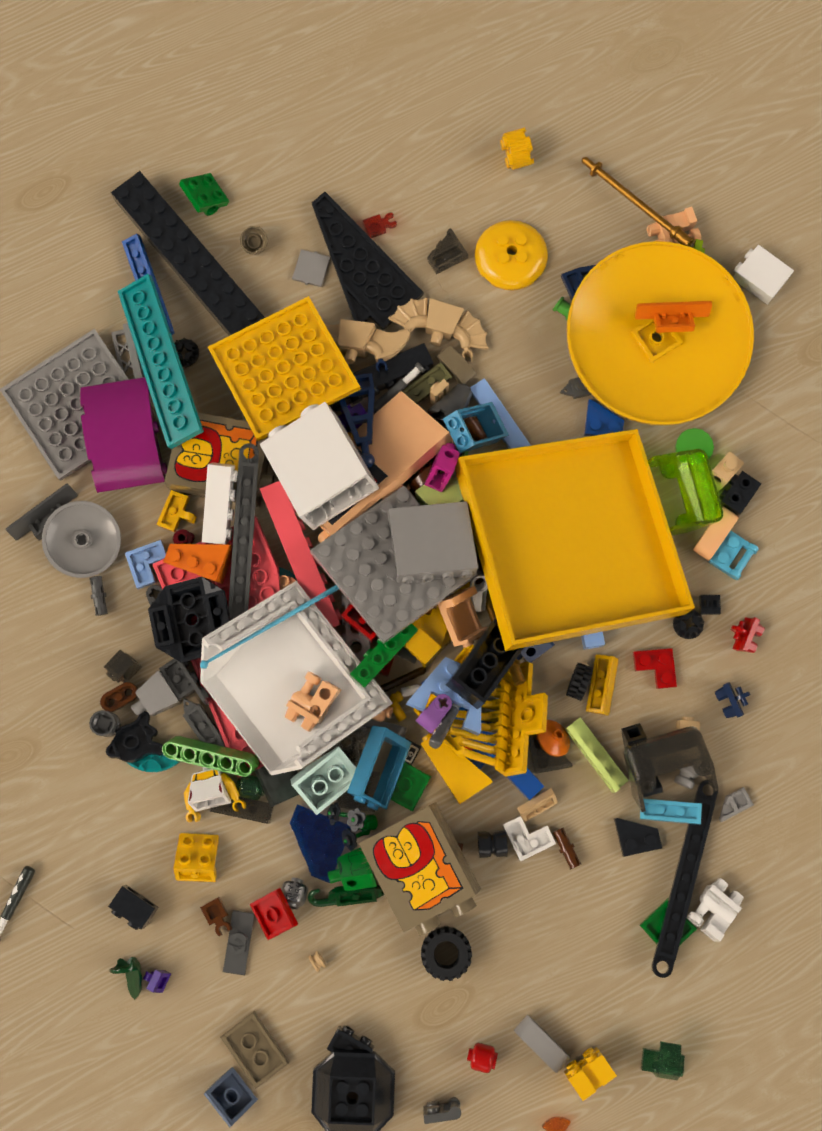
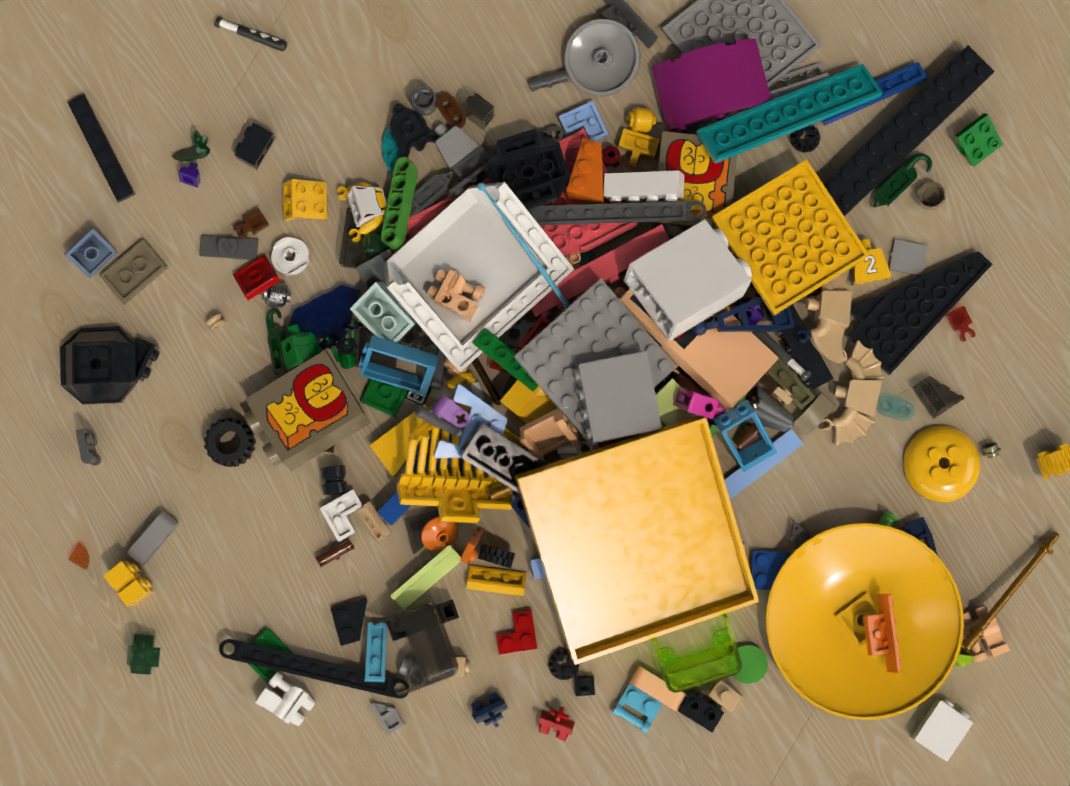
camera: 85 degrees right, 5 degrees up
(116, 1079) = (101, 148): none -> black plate
(149, 507) = (641, 119): none -> yellow head
(236, 268) = (900, 181): none -> dark green plate
(243, 872) = (280, 252): none -> white plate
(321, 298) = (872, 268): none -> yellow torso
(454, 291) = (895, 407): none -> clear light blue plate
(482, 1057) = (137, 483): red head -> none
(501, 209) = (991, 450): none -> olive plate
(576, 706) = (470, 552): none -> orange wing

